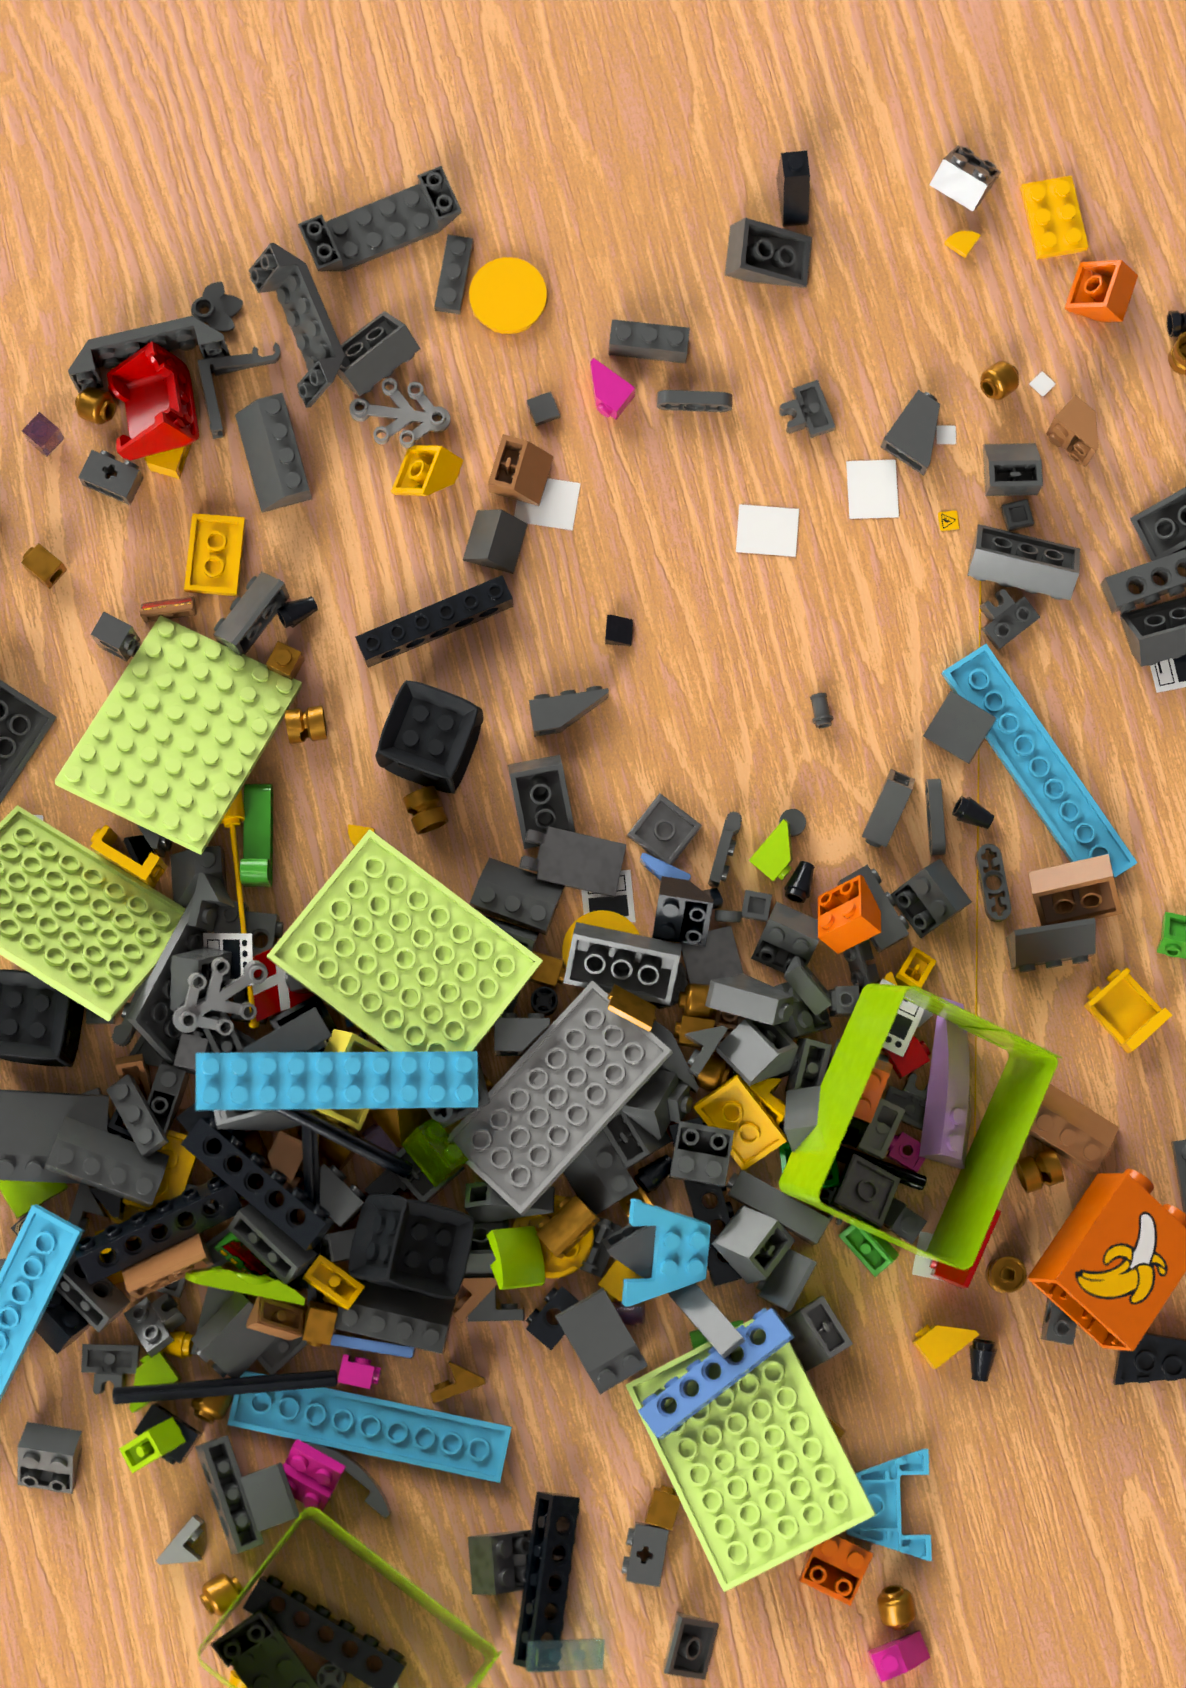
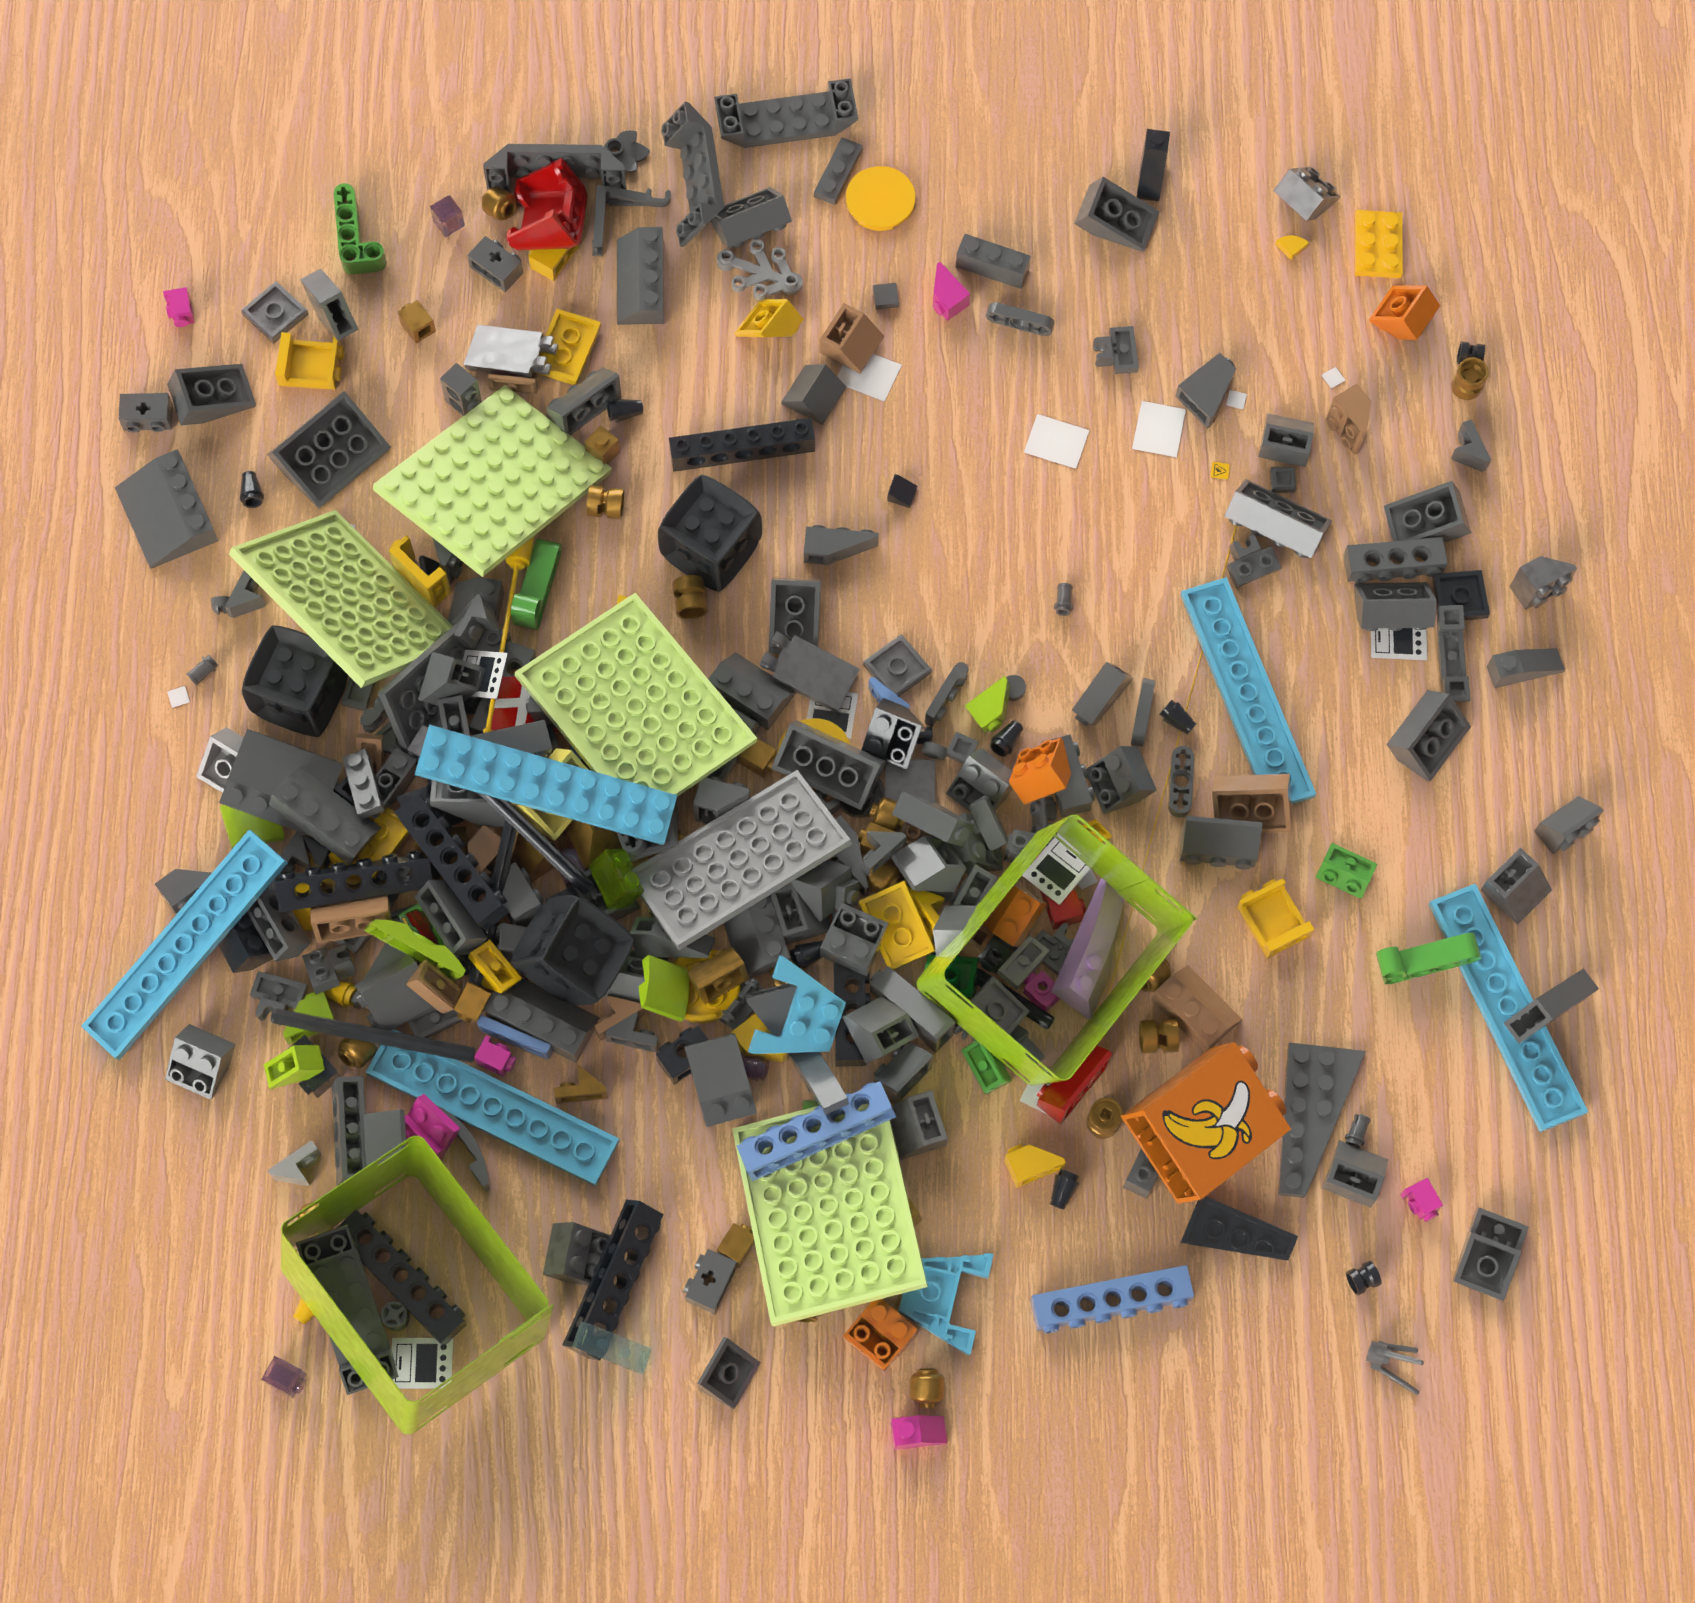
camera: 15 degrees right, 10 degrees down
(154, 576) = (509, 351): none -> tile
(216, 998) = (460, 697): light grey plant -> none
(542, 997) = (749, 777): black wheel -> none
(631, 1007) = (825, 799): pearl gold piece -> none
(960, 727) = (1184, 641): dark grey tile -> none
(993, 1488) = (1175, 1278): none -> medium blue brick
(999, 380) = (1294, 363): pearl gold head -> none

